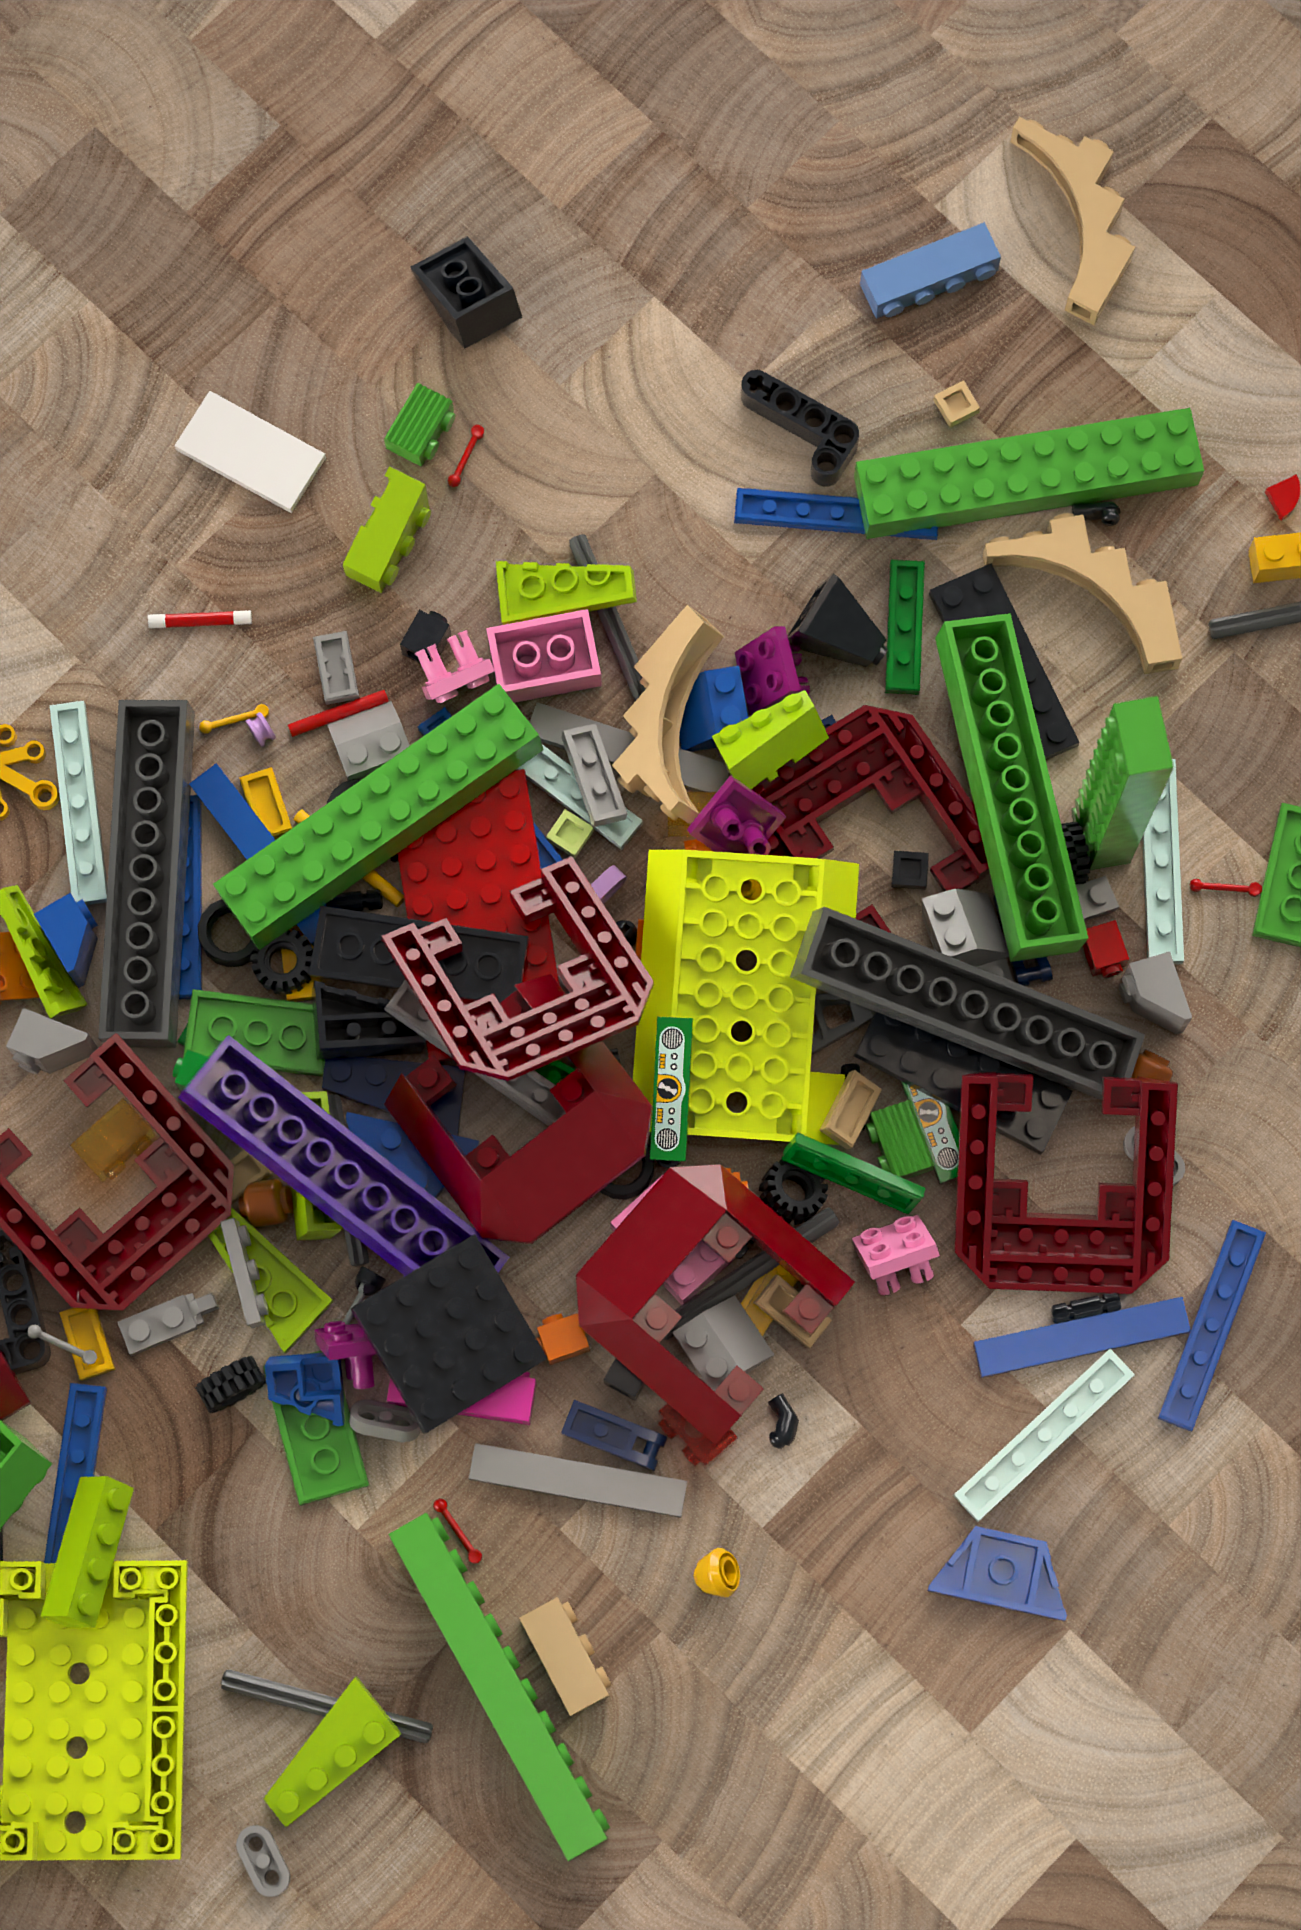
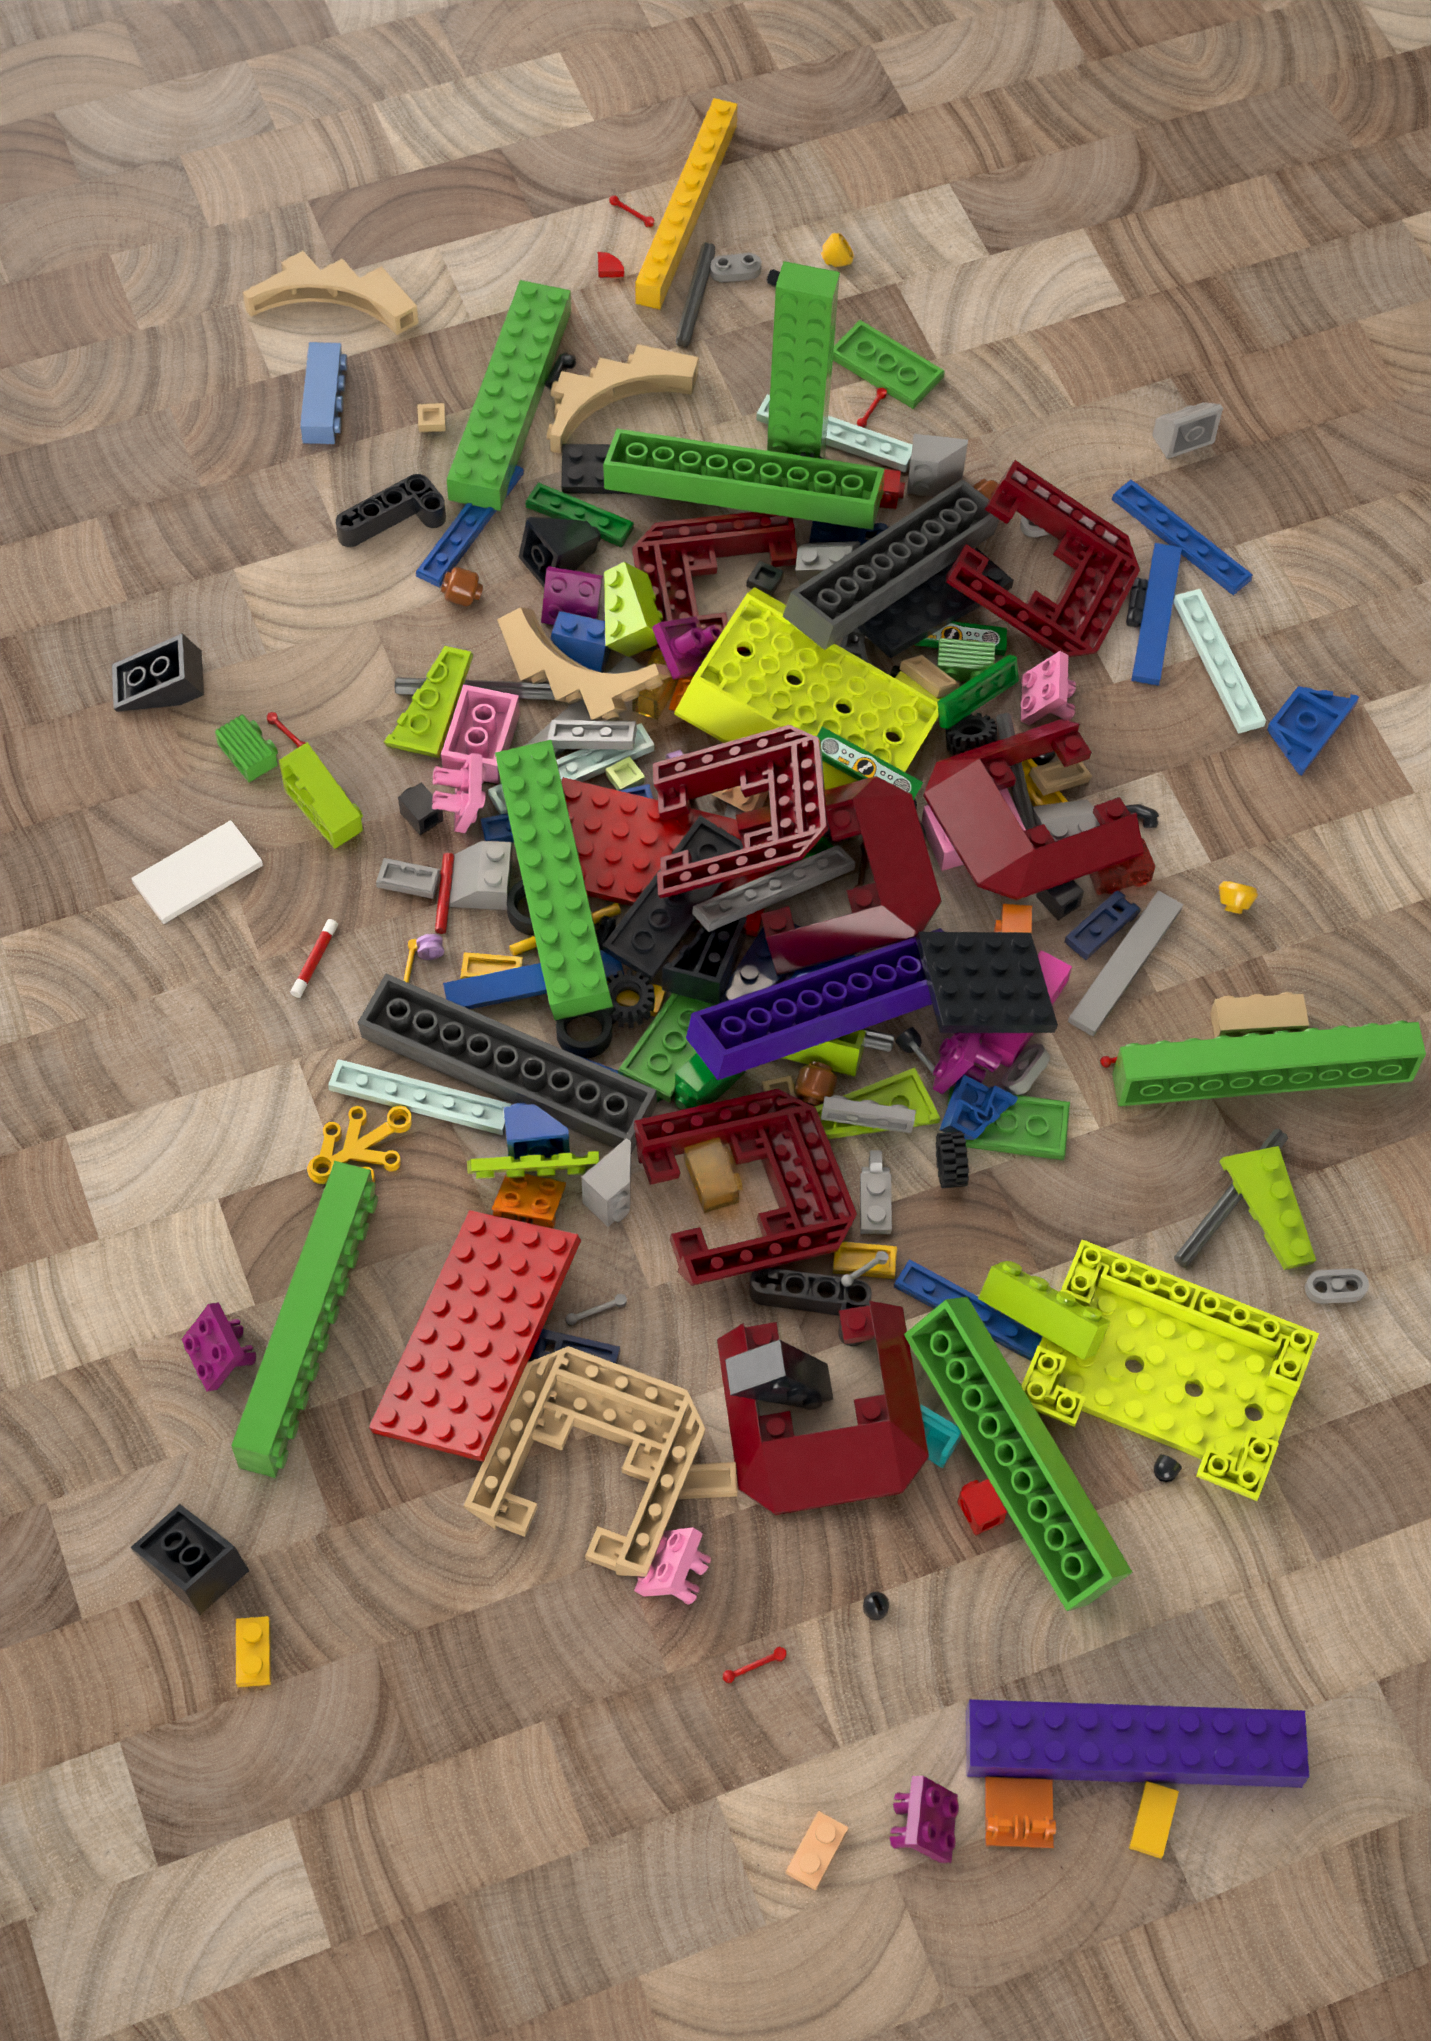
camera: 70 degrees left, 15 degrees down
(735, 546) = (461, 586): none -> dark orange head

